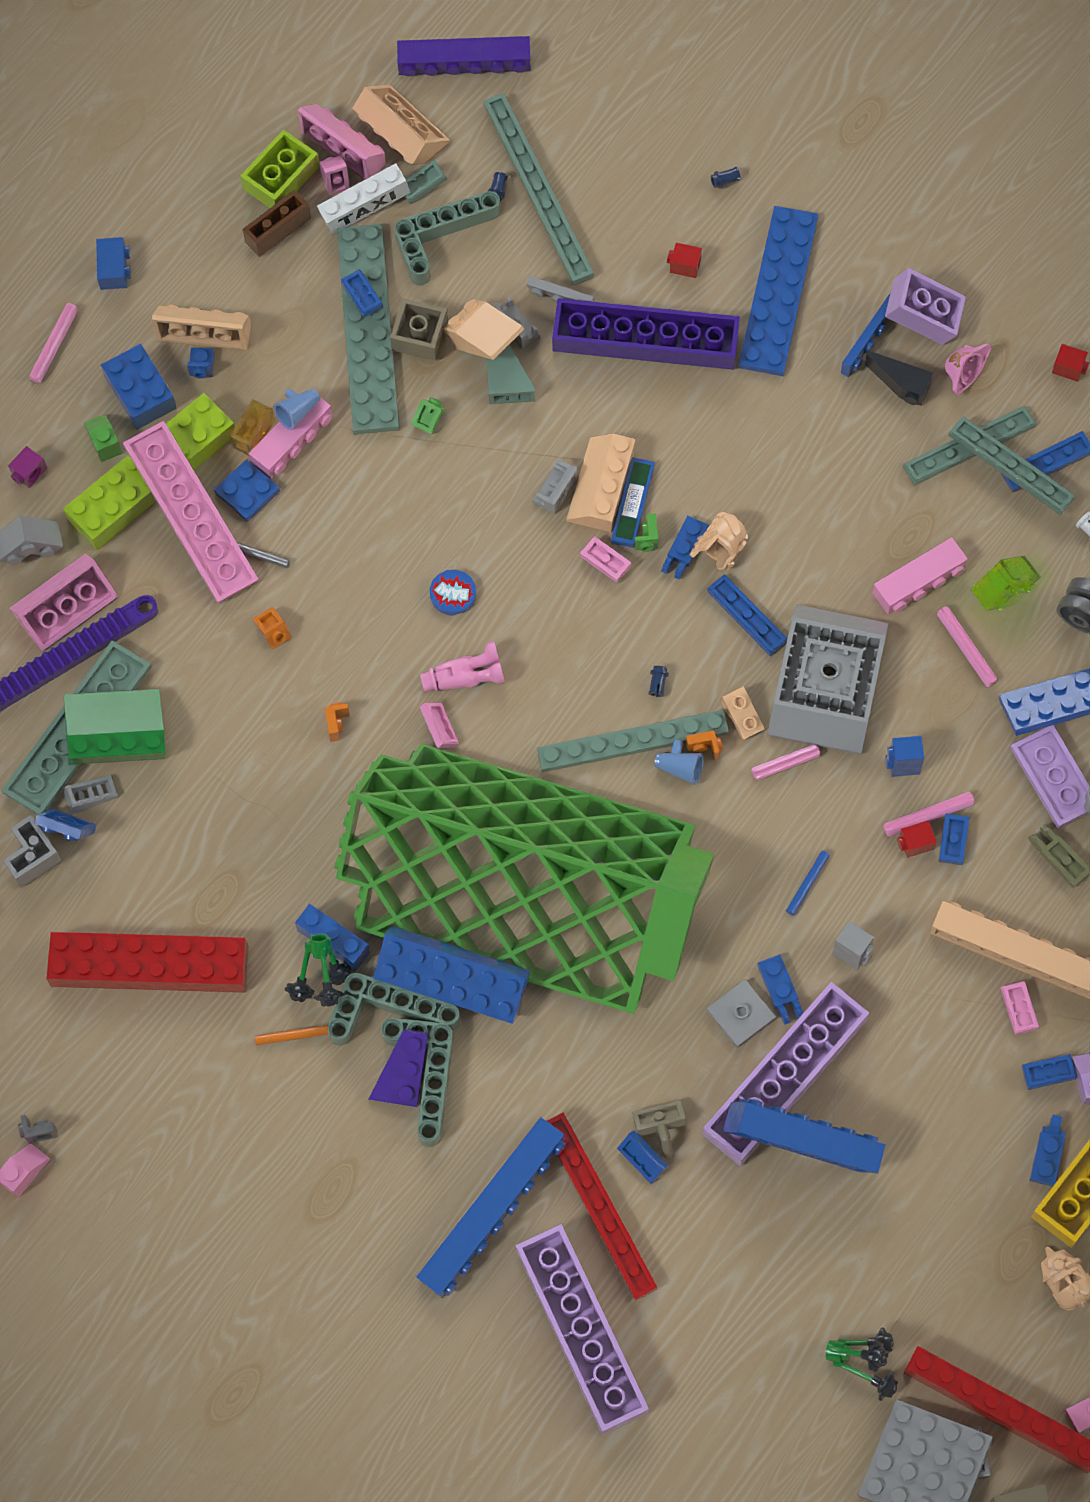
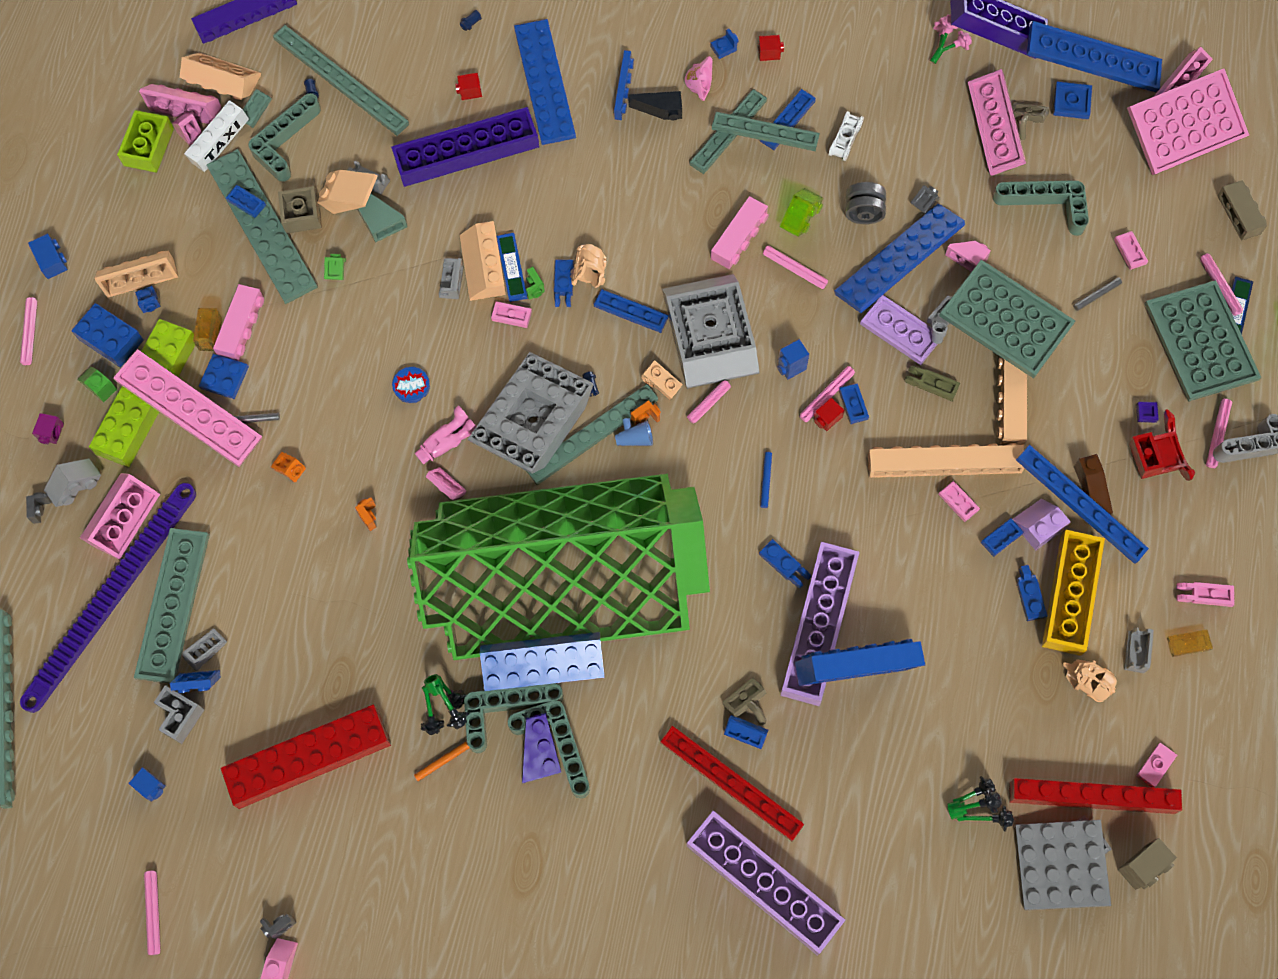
camera: 25 degrees left, 0 degrees up
(114, 727) = (200, 591): slope -> none
(276, 223) = (159, 178): reddish brown brick -> none
(295, 407) = (233, 300): medium blue piece -> none
(345, 944) = (453, 675): blue brick -> none
(491, 1208) = (653, 823): blue brick -> none
(540, 288) = (374, 146): light grey plate -> none
(587, 661) = (533, 391): none -> light grey slope
(741, 1013) = (765, 594): light grey plate -> none
(853, 946) = (823, 509): light grey brick -> none
(925, 306) = (653, 48): lavender brick -> none
(1018, 336) = (725, 44): none -> blue bracket

